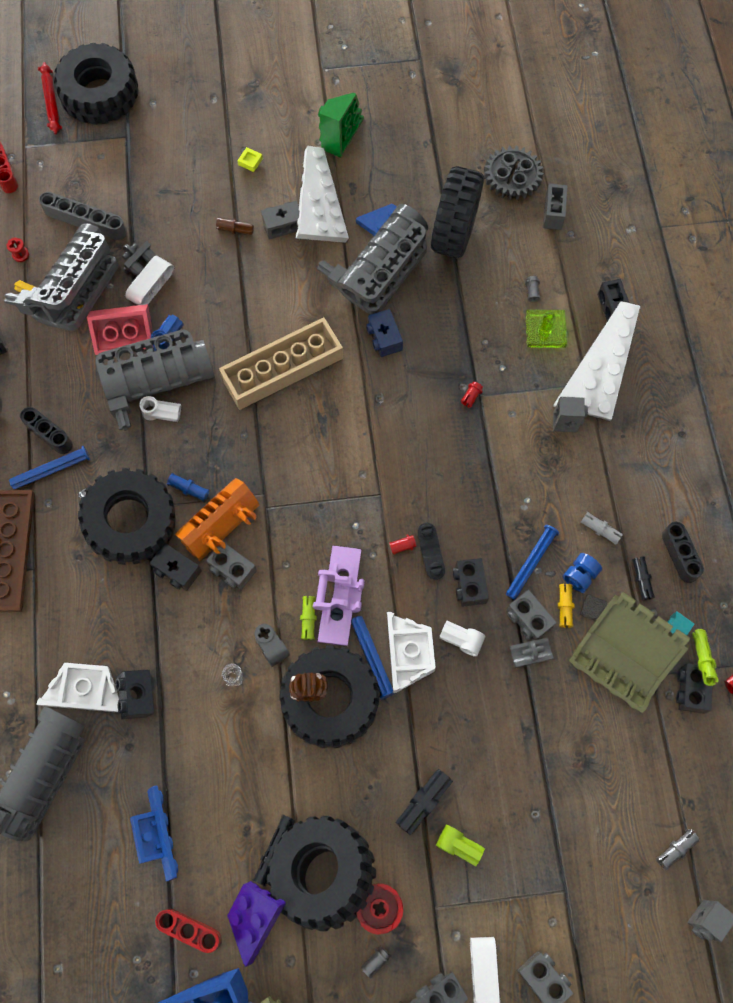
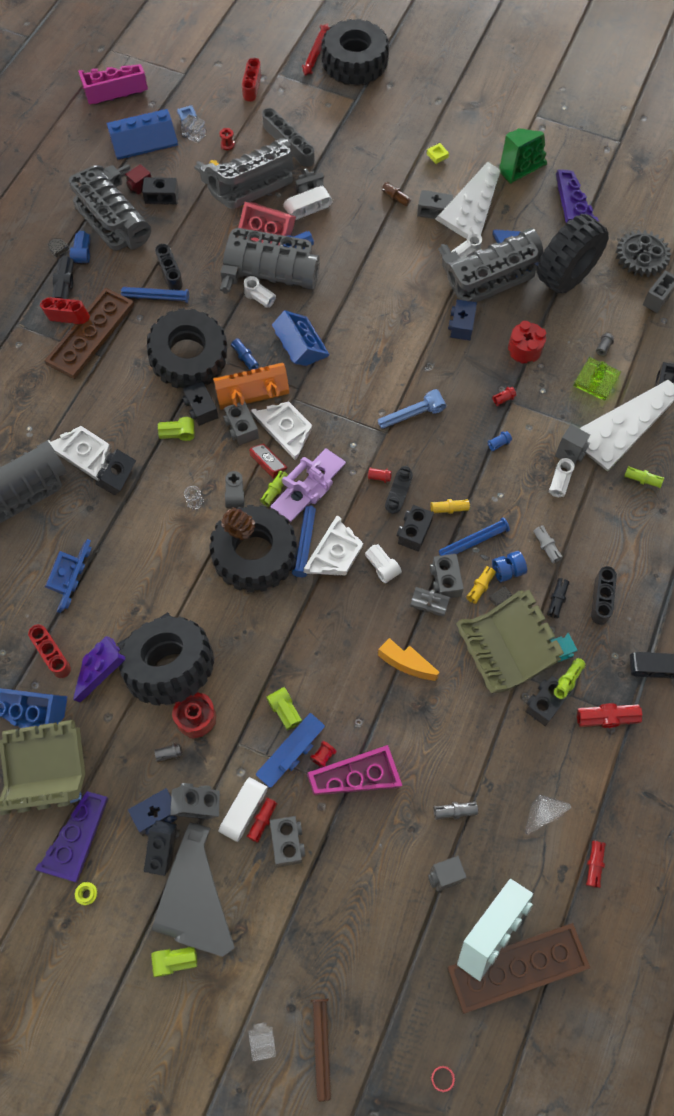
camera: 30 degrees right, 5 degrees down
(173, 606) = (179, 429): none -> lime piece
(234, 439) = (299, 338): none -> blue slope
(277, 543) = (285, 426): none -> white wing
(281, 363) = (369, 302): tan brick -> none
(282, 590) = (267, 460): none -> slope
(343, 253) = (471, 245): none -> white piece
(407, 439) = (432, 402): none -> medium blue axle
(413, 146) = (572, 198): none -> dark purple wing
(424, 801) = (277, 662): black piece -> none
(461, 326) = (527, 342): none -> red brick
(489, 540) = (450, 506): none -> yellow pin
(493, 886) = (286, 755): none -> blue bracket
(495, 444) = (502, 439): none -> blue pin
(508, 974) = (262, 820): none -> red pin
(525, 870) = (323, 754): none -> red bush
(545, 725) = (407, 661): none -> light orange slope
(570, 872) = (360, 773): none -> dark pink wedge
(575, 454) = (561, 478): none -> white piece
(648, 409) = (644, 477): none -> lime pin

